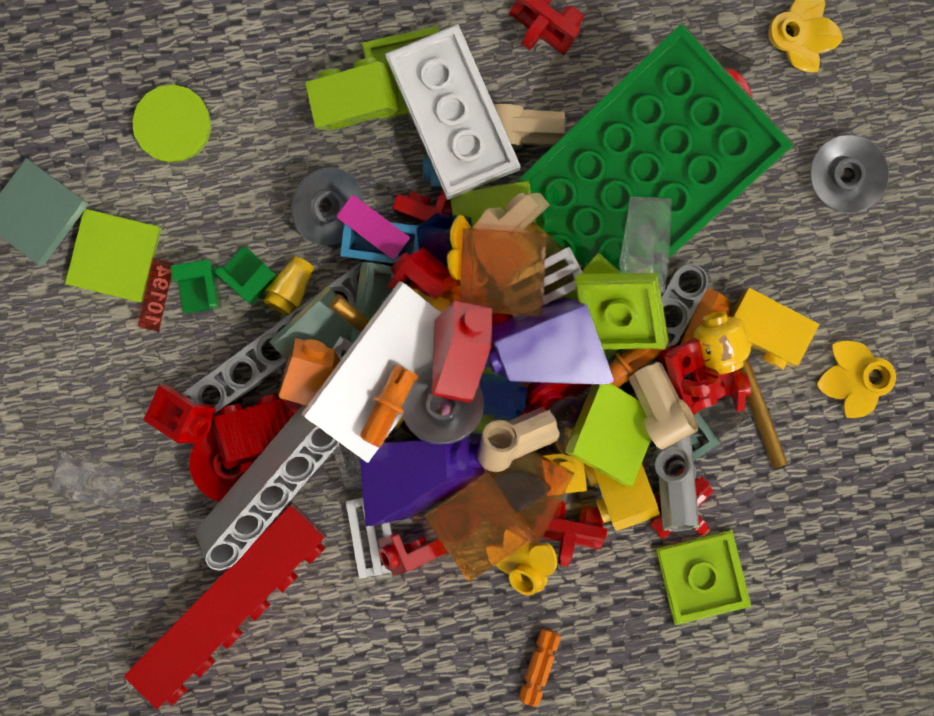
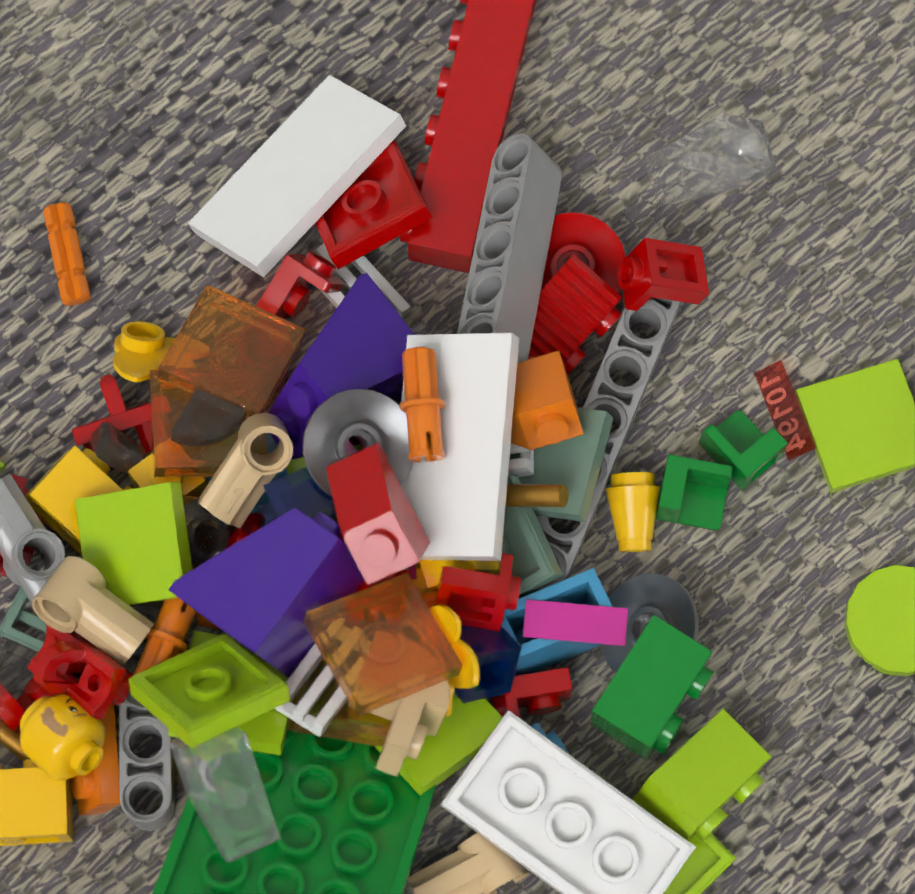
camera: 145 degrees right, 15 degrees down
(334, 581) = (373, 209): none -> red tile
(352, 160) = (649, 688): none -> green brick
(364, 630) = (297, 175): none -> white tile
(585, 509) = (116, 448): none -> clear smoke tile

